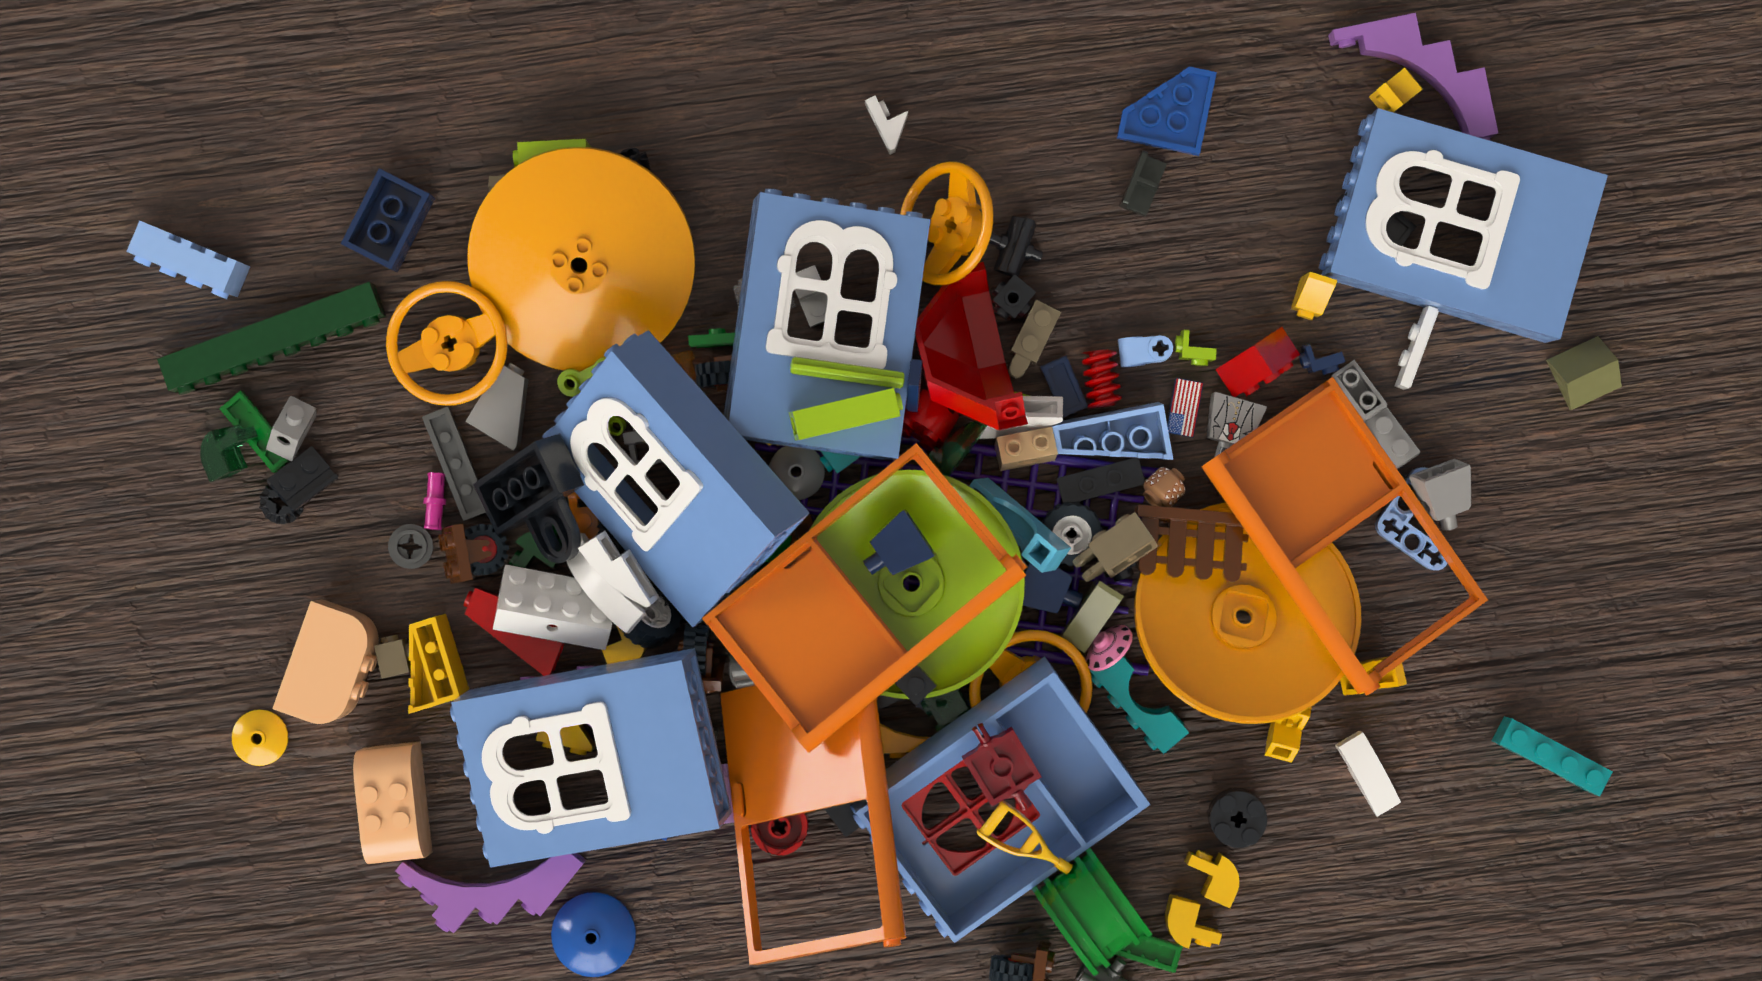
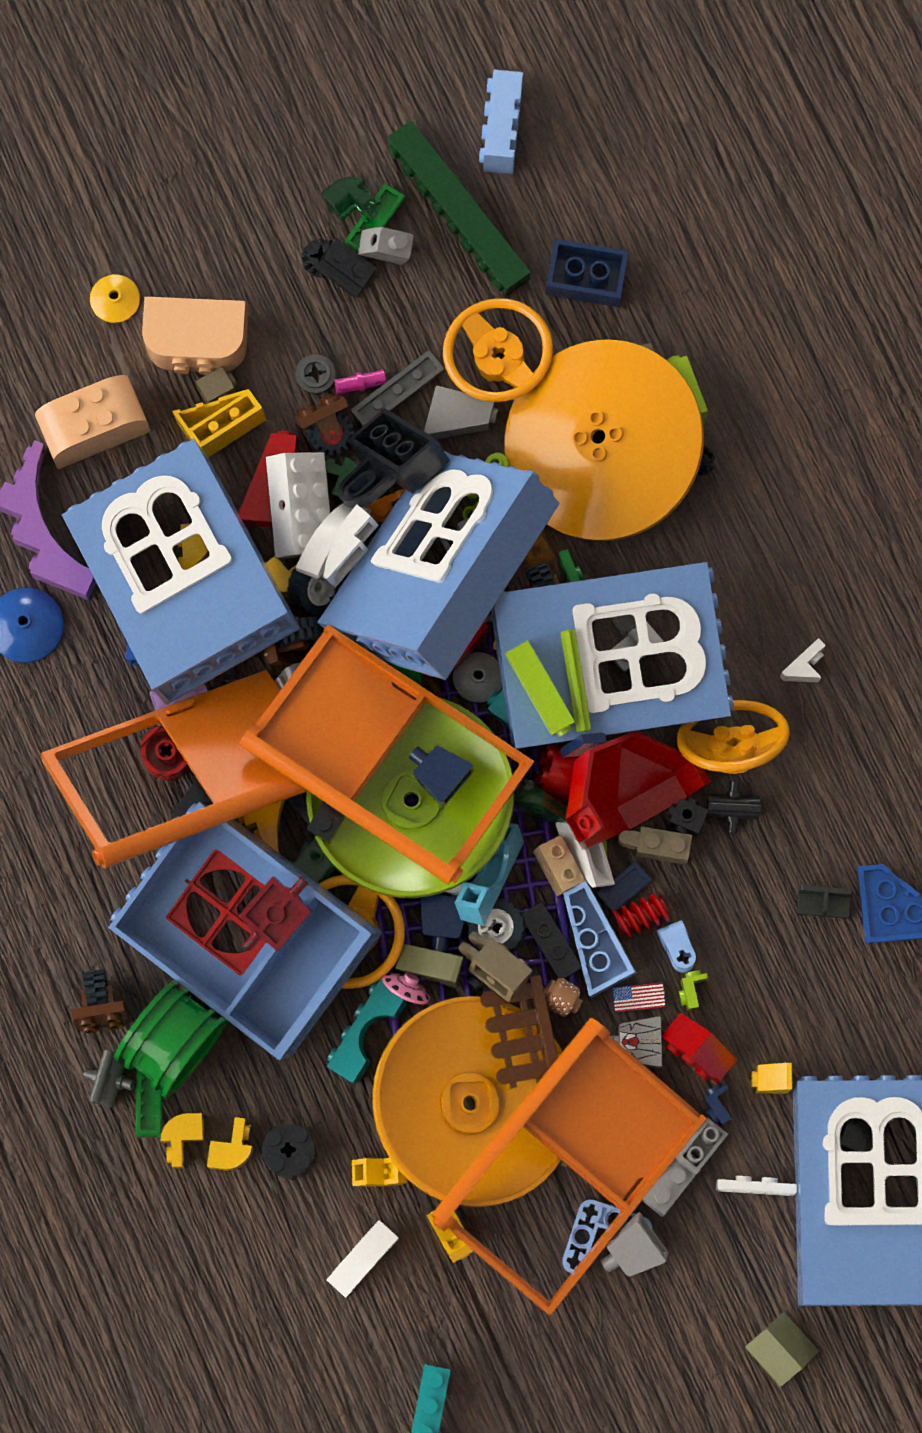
camera: 80 degrees right, 10 degrees down
(1029, 845) = (221, 966): yellow piece -> none

